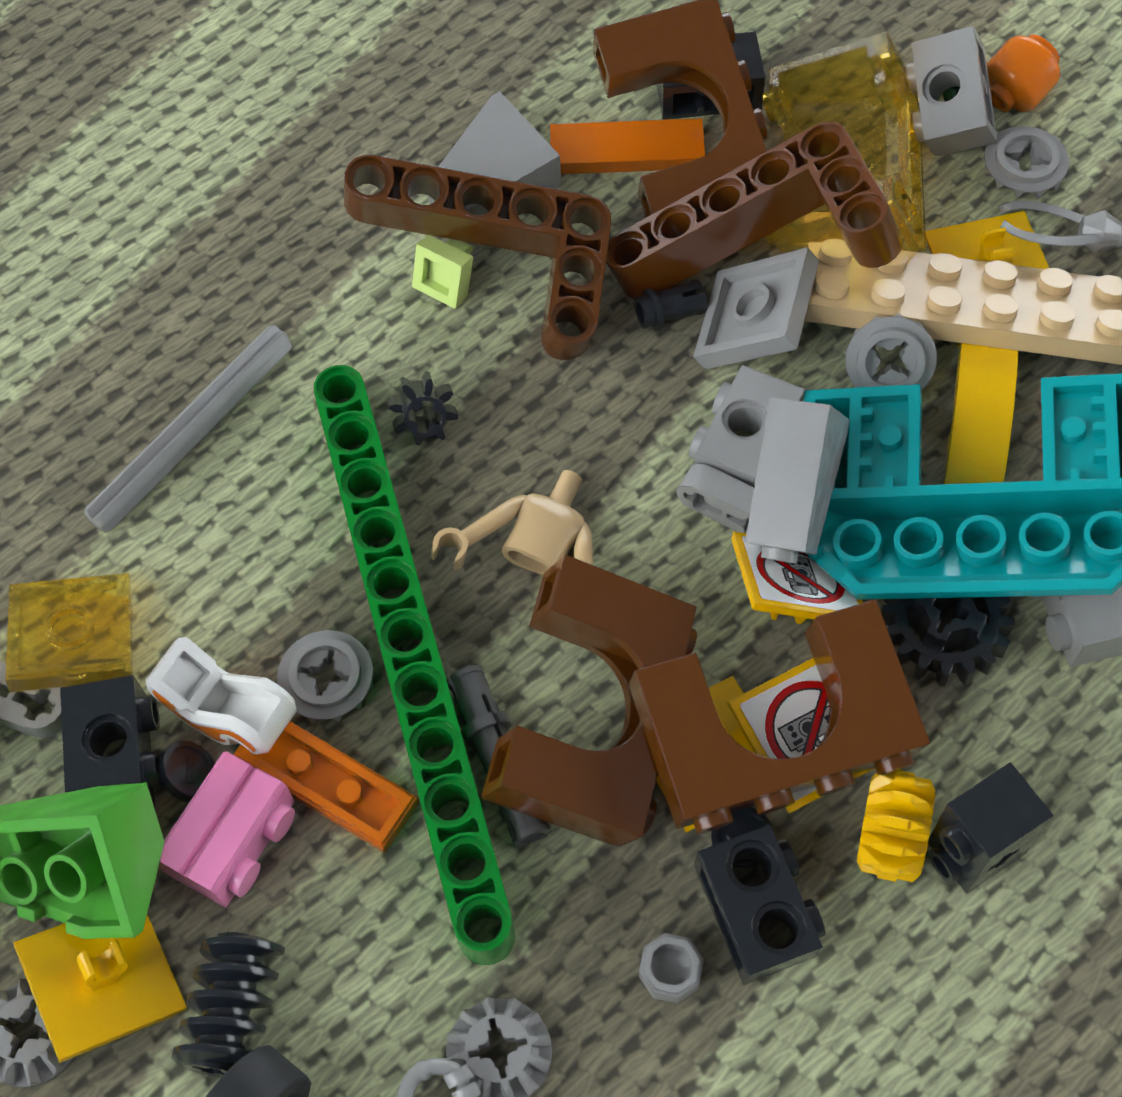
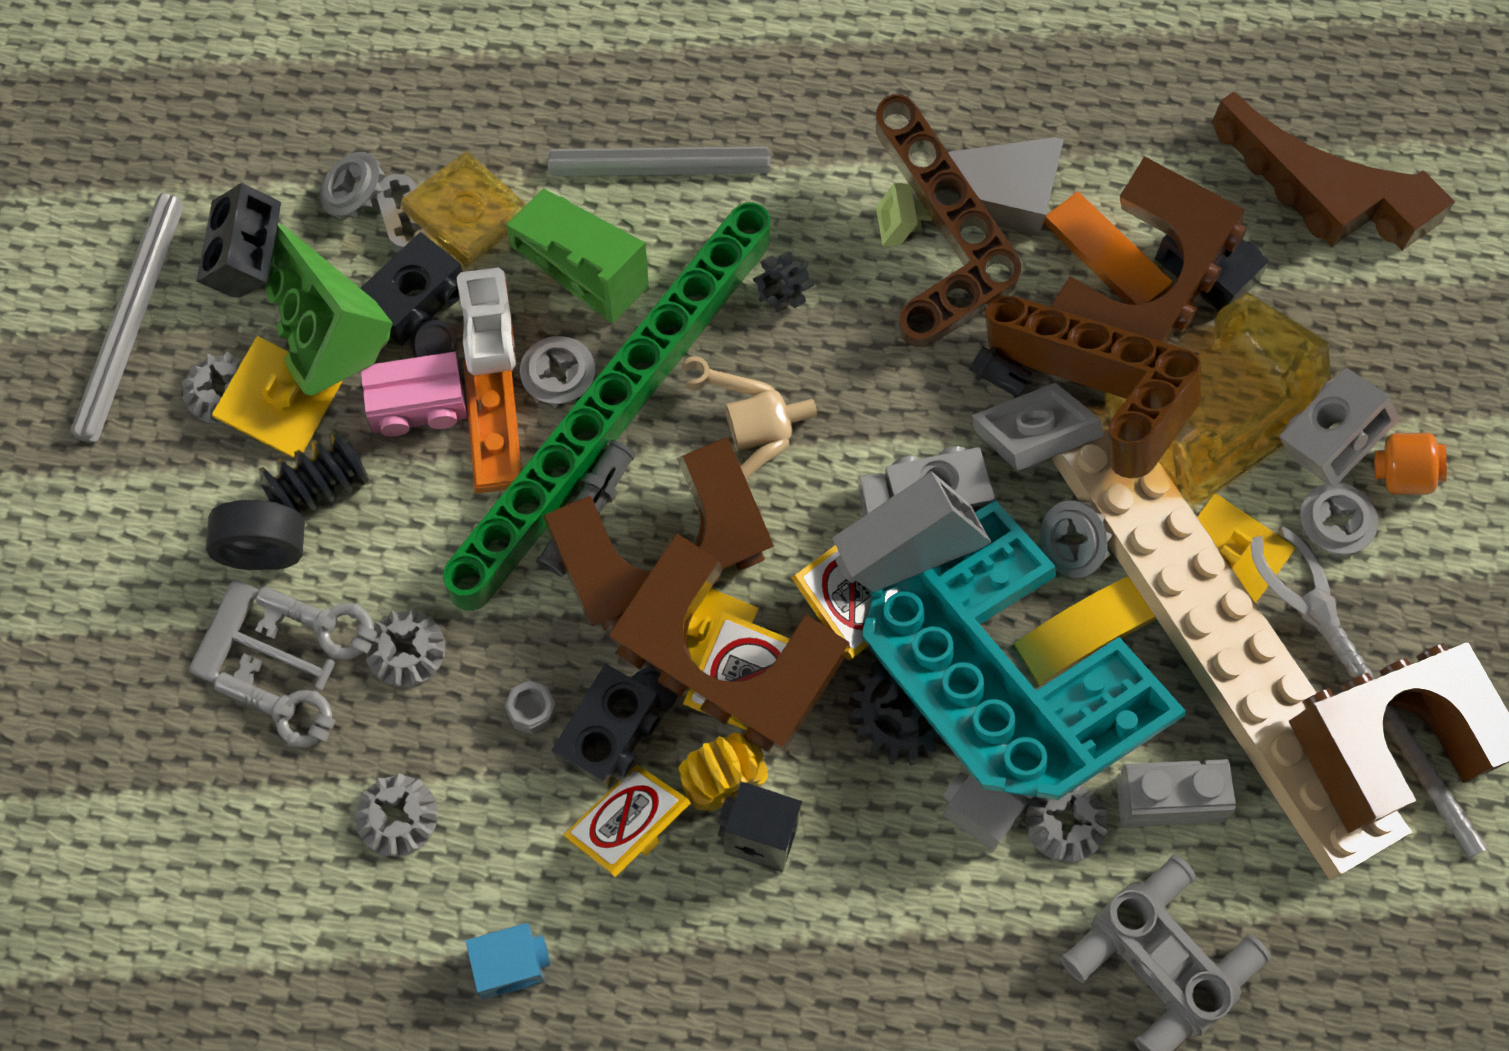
camera: 45 degrees right, 5 degrees up
(224, 557) = (581, 253): none -> bright green wedge
(879, 959) = (627, 820): none -> piece

